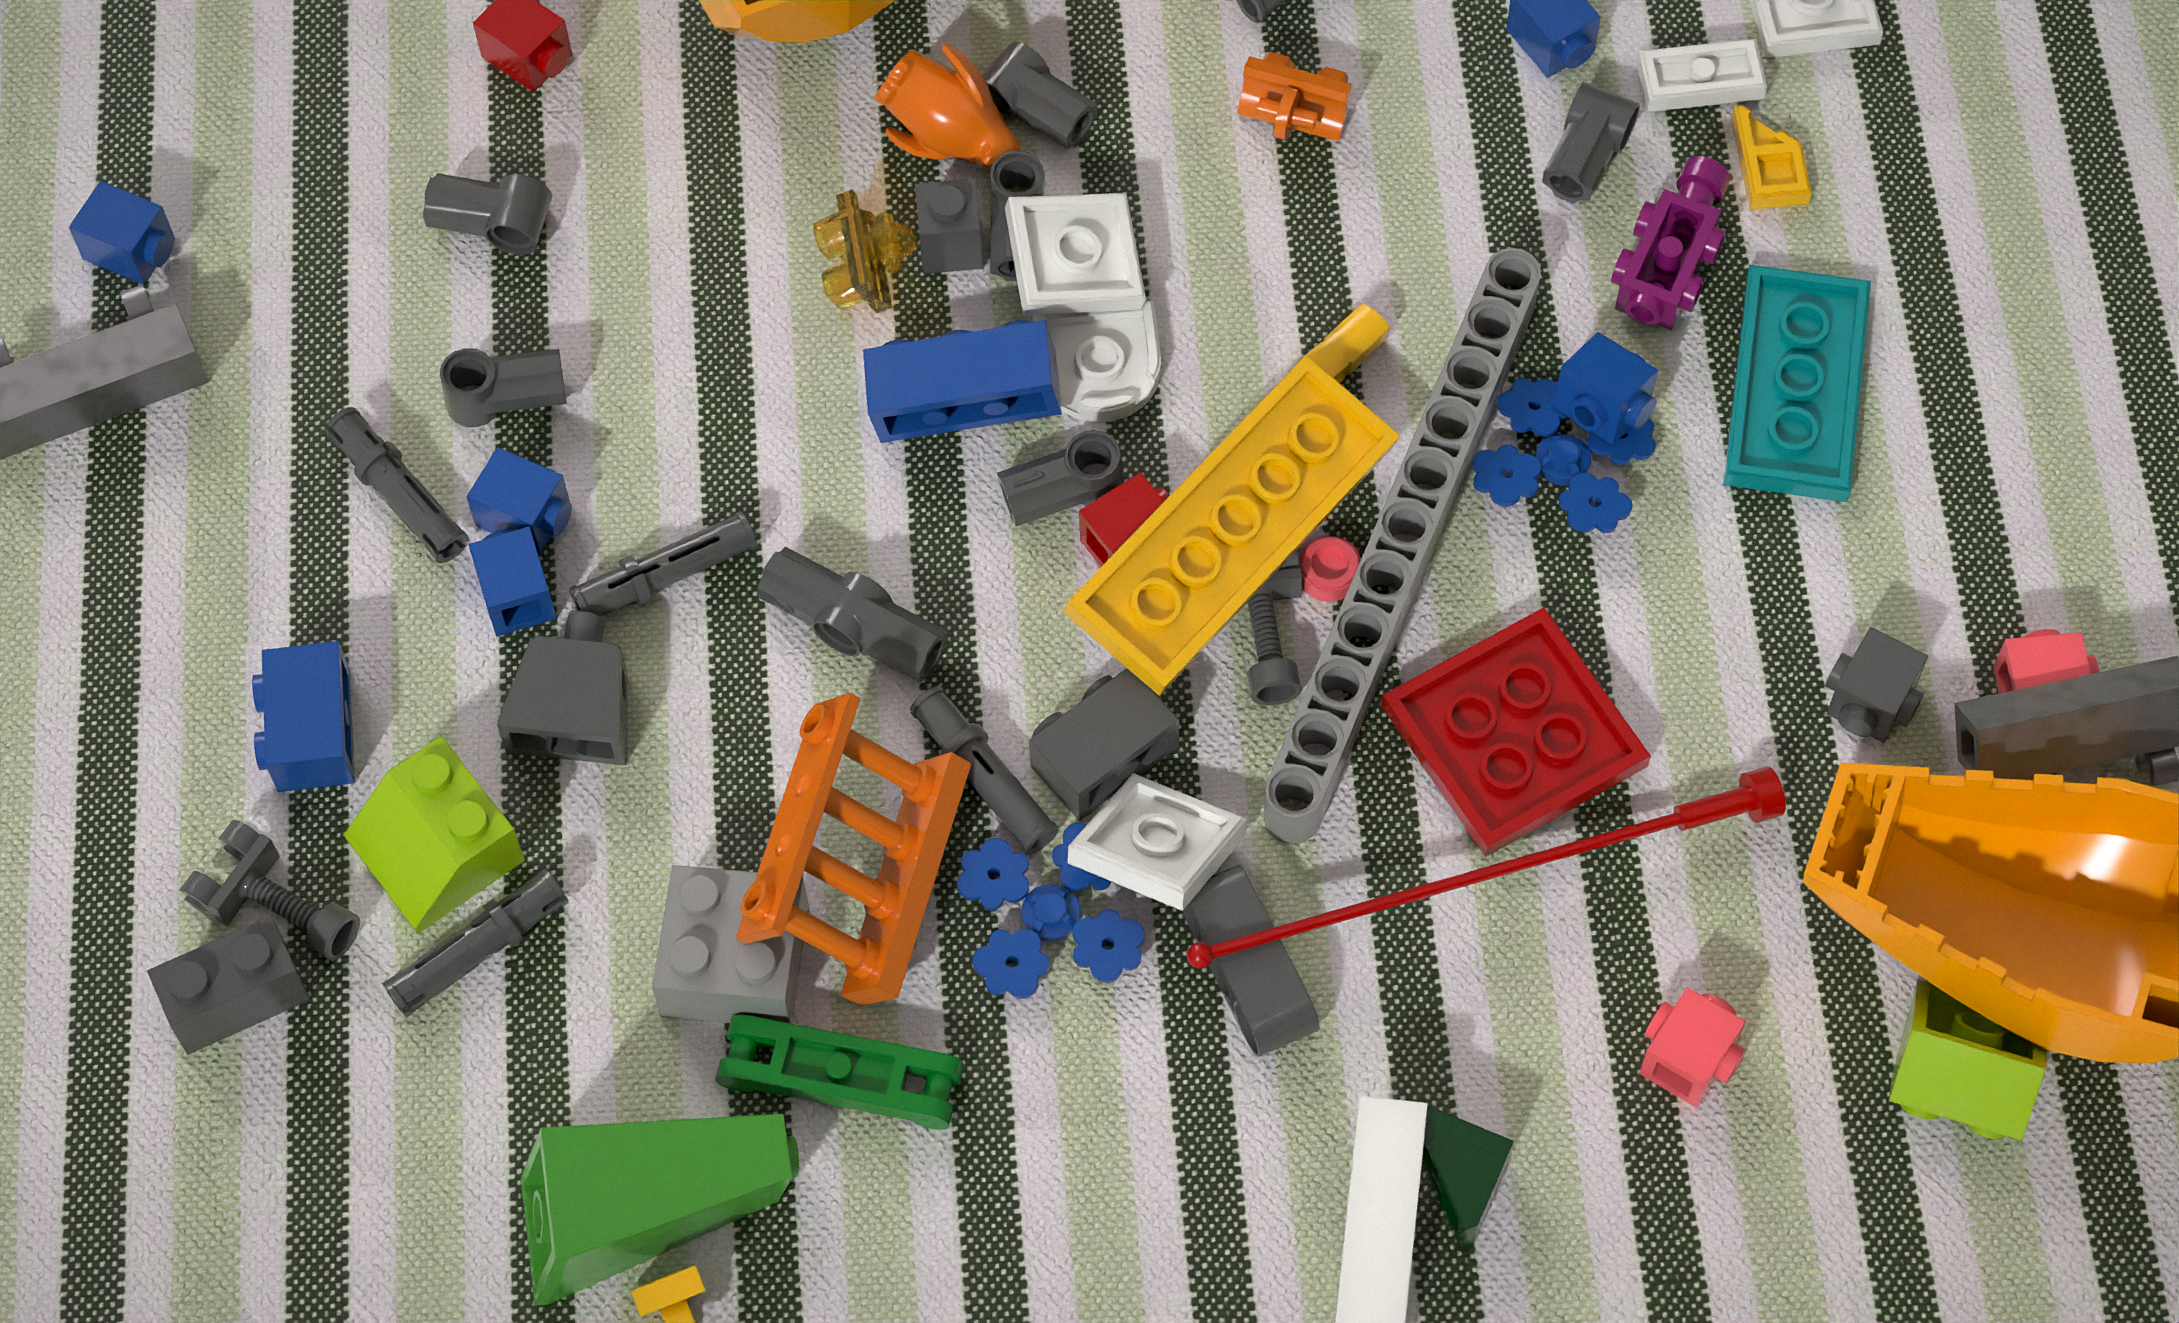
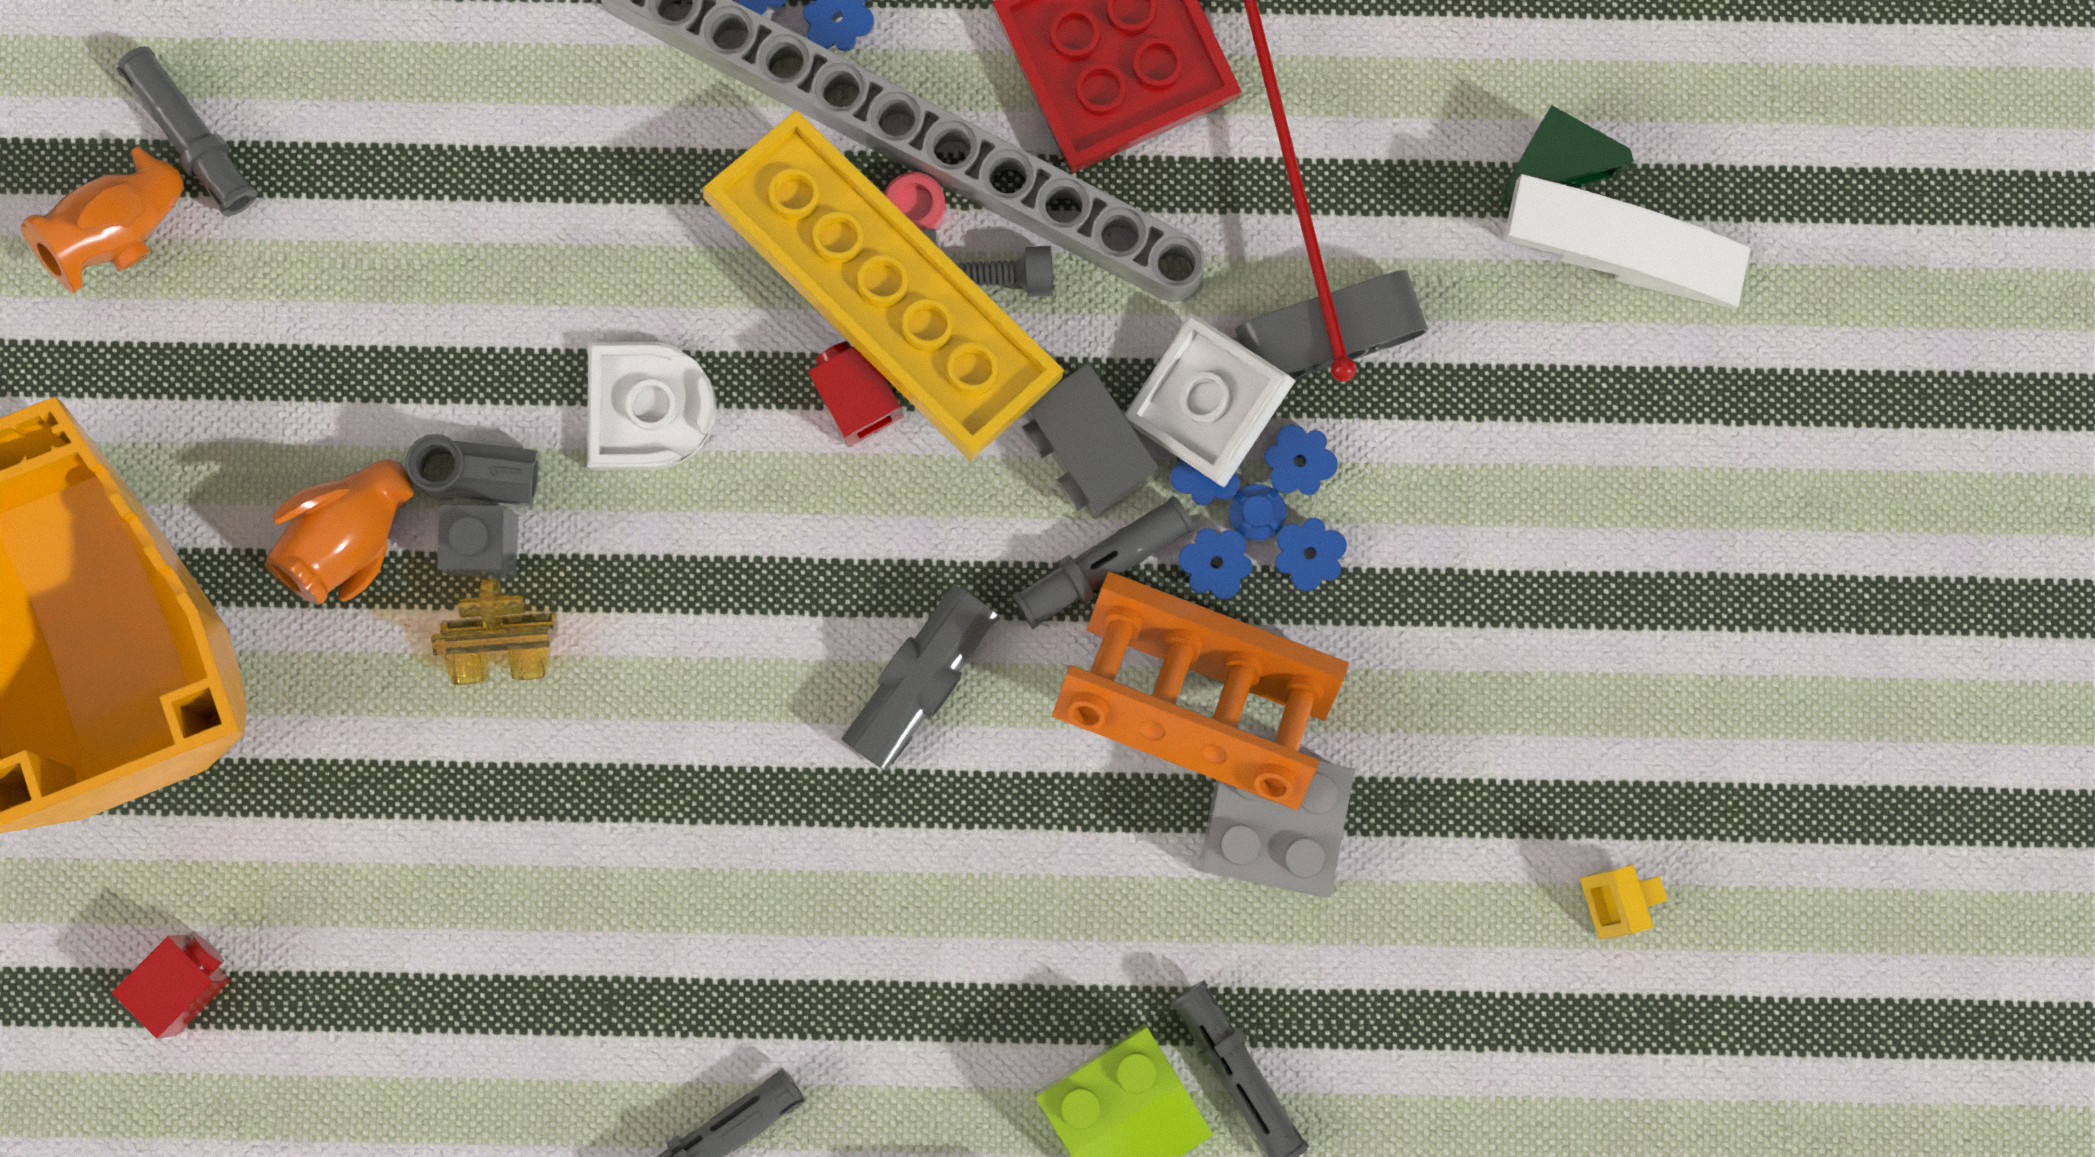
camera: 85 degrees left, 20 degrees up
(503, 213) = (393, 1013): dark grey piece -> none
(504, 383) = (605, 1013): dark grey piece -> none
(512, 580) = (842, 1023): blue brick -> none
(520, 495) = (752, 1009): blue brick -> none
(569, 697) = (980, 966): dark grey torso -> none
(638, 1189) = (1529, 928): bright green slope -> none
(641, 577) = (869, 932): dark grey pin -> none
(840, 1070) = (1406, 727): green plate -> none
(962, 381) = (668, 544): blue brick -> none
(1027, 90) = (316, 445): dark grey piece -> none
(1058, 480) = (793, 461): dark grey piece -> none
(1075, 253) = (535, 413): white tile -> none
(1295, 98) = (365, 171): orange hips -> none
(1350, 342) = (671, 161): yellow bar -> none

